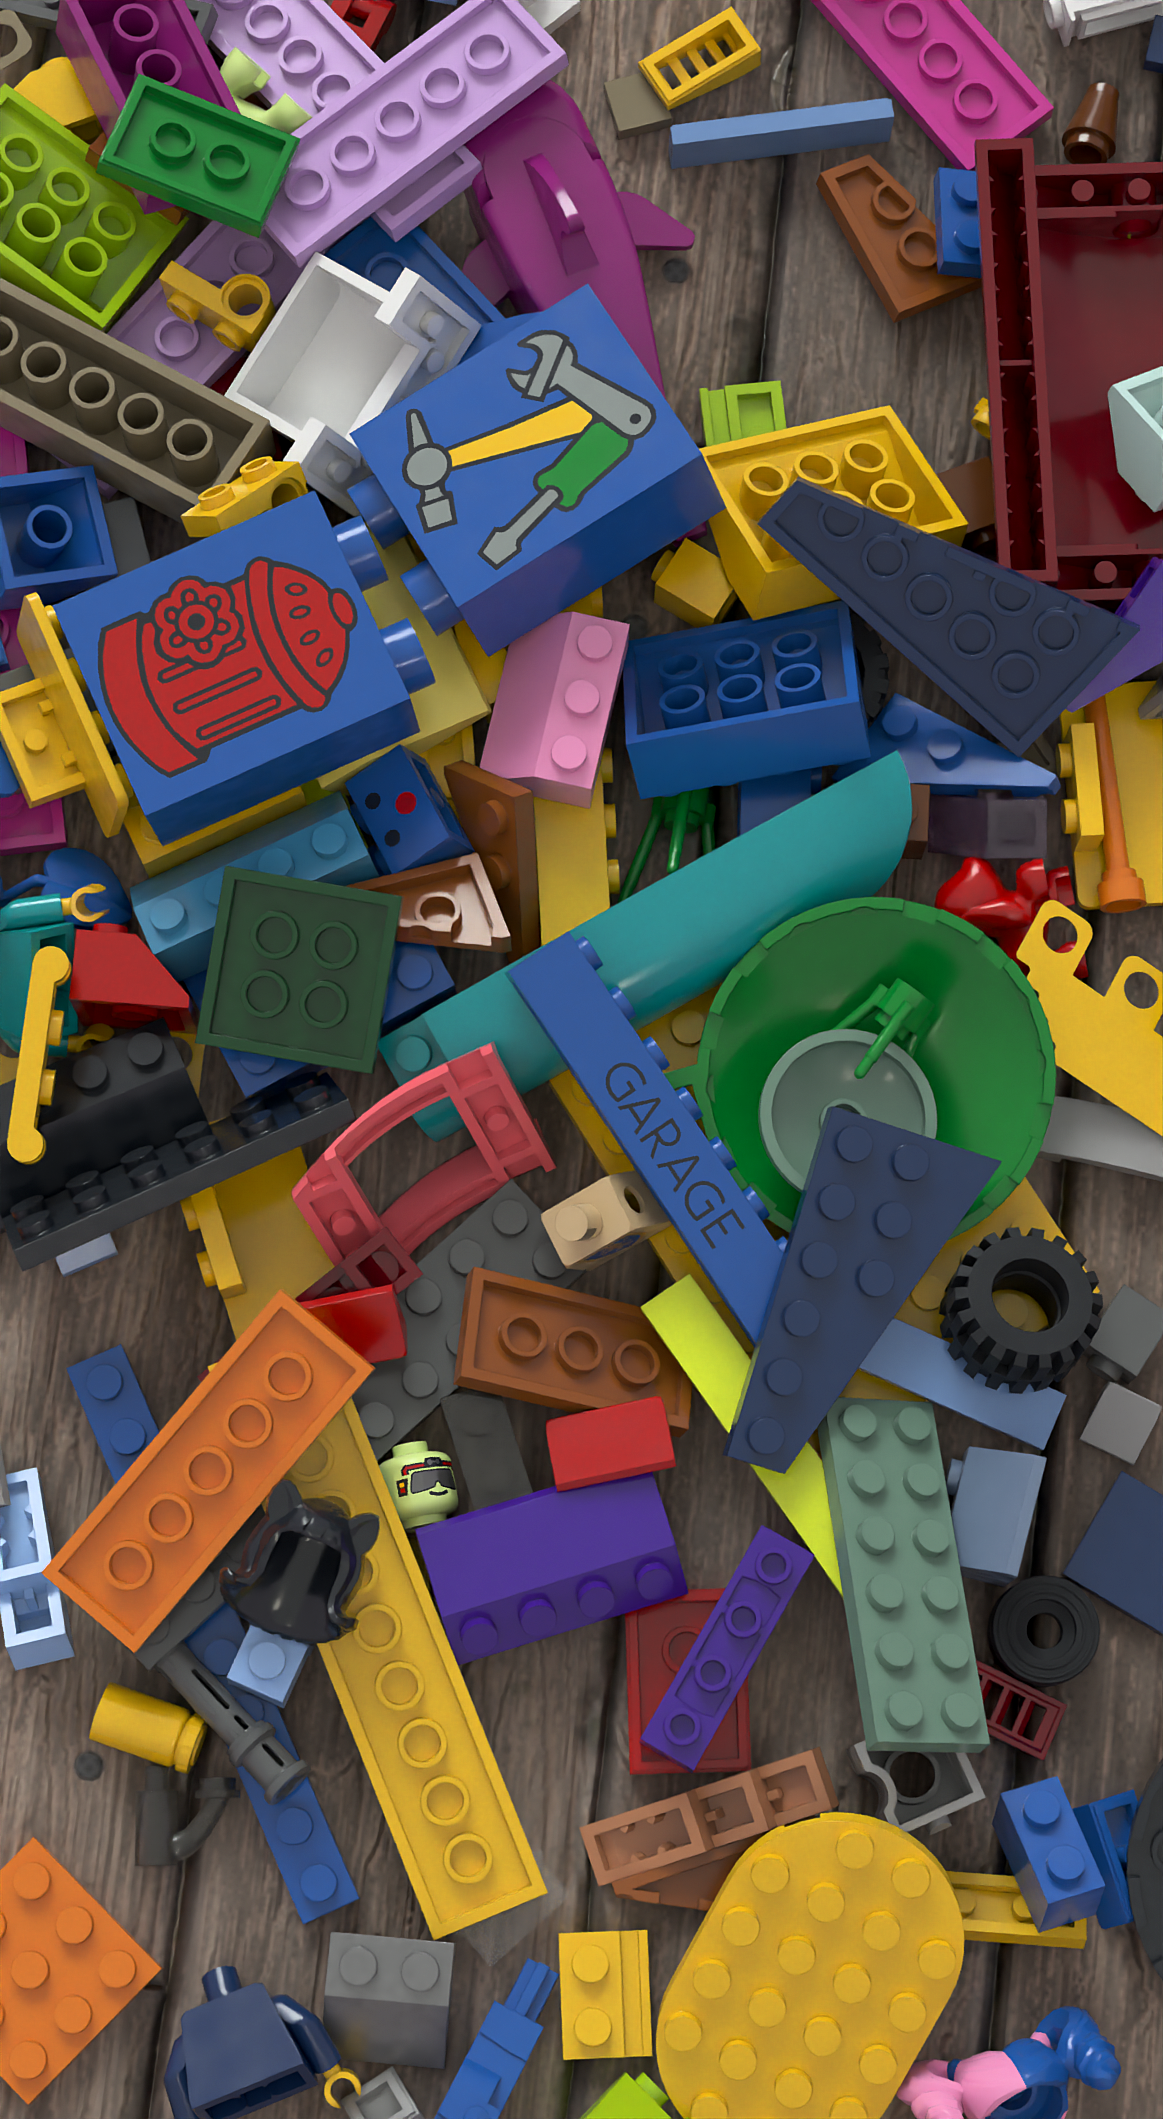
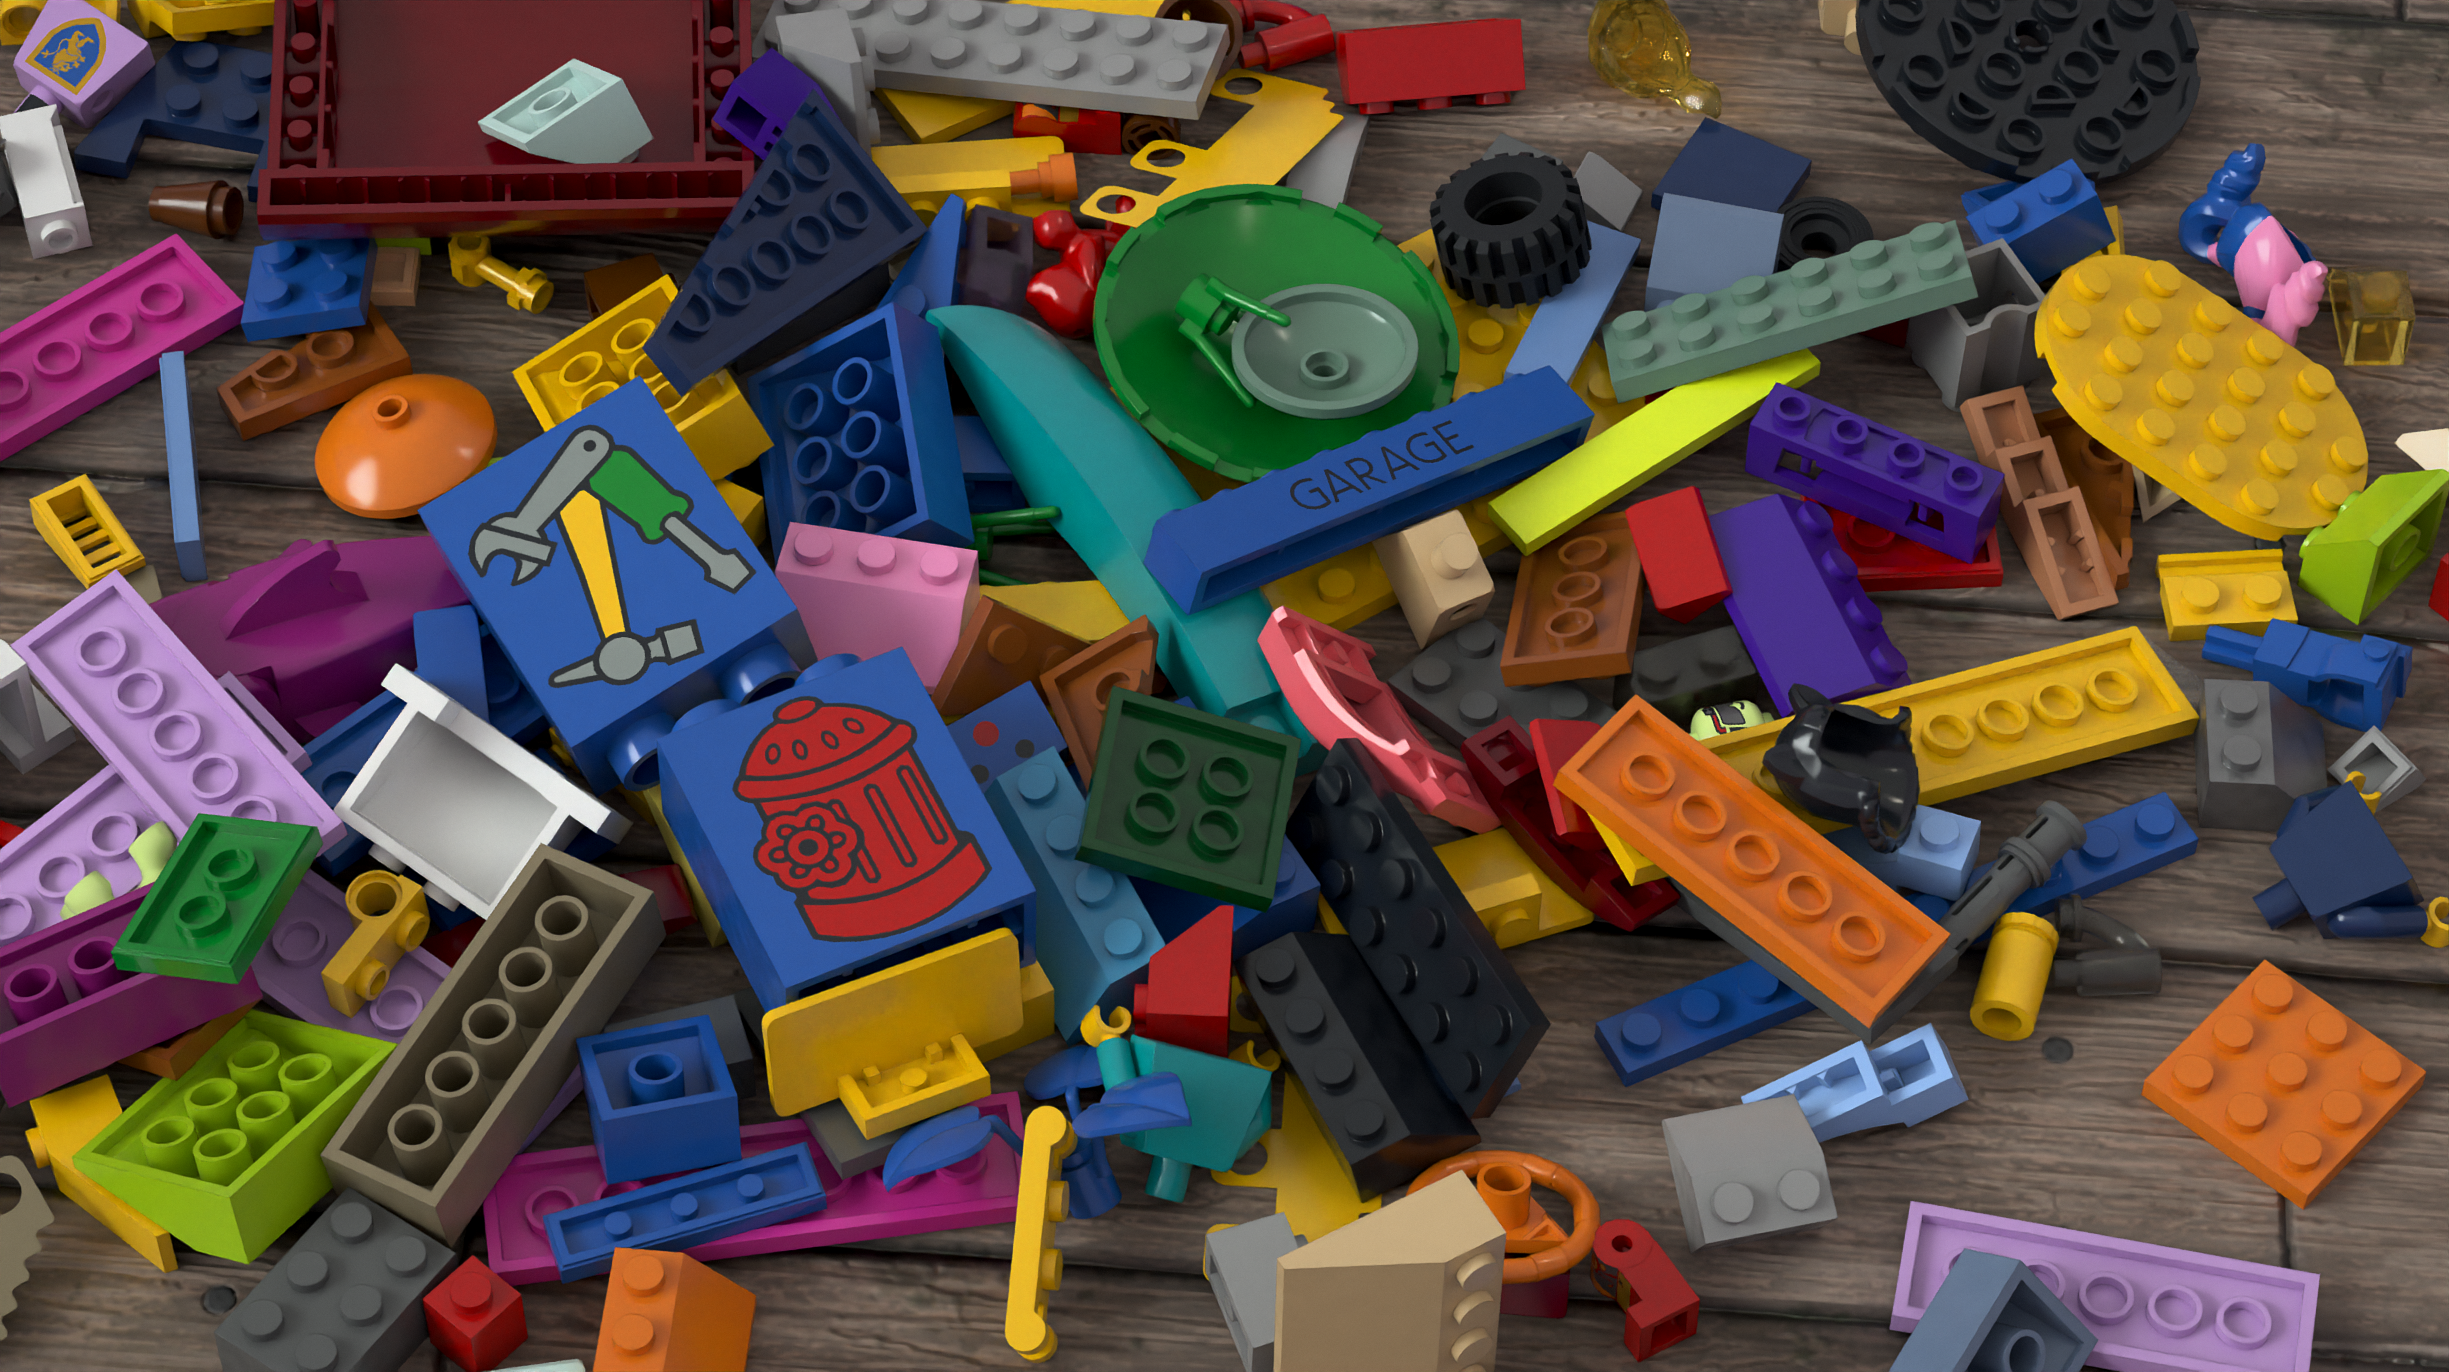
camera: 90 degrees left, 25 degrees down
(41, 1028) = (1298, 1034): yellow plate -> none
(258, 489) = (644, 846): yellow plate -> none
(800, 340) = (404, 445): none -> orange dish
(858, 1245) = (1454, 331): dark blue wing -> none

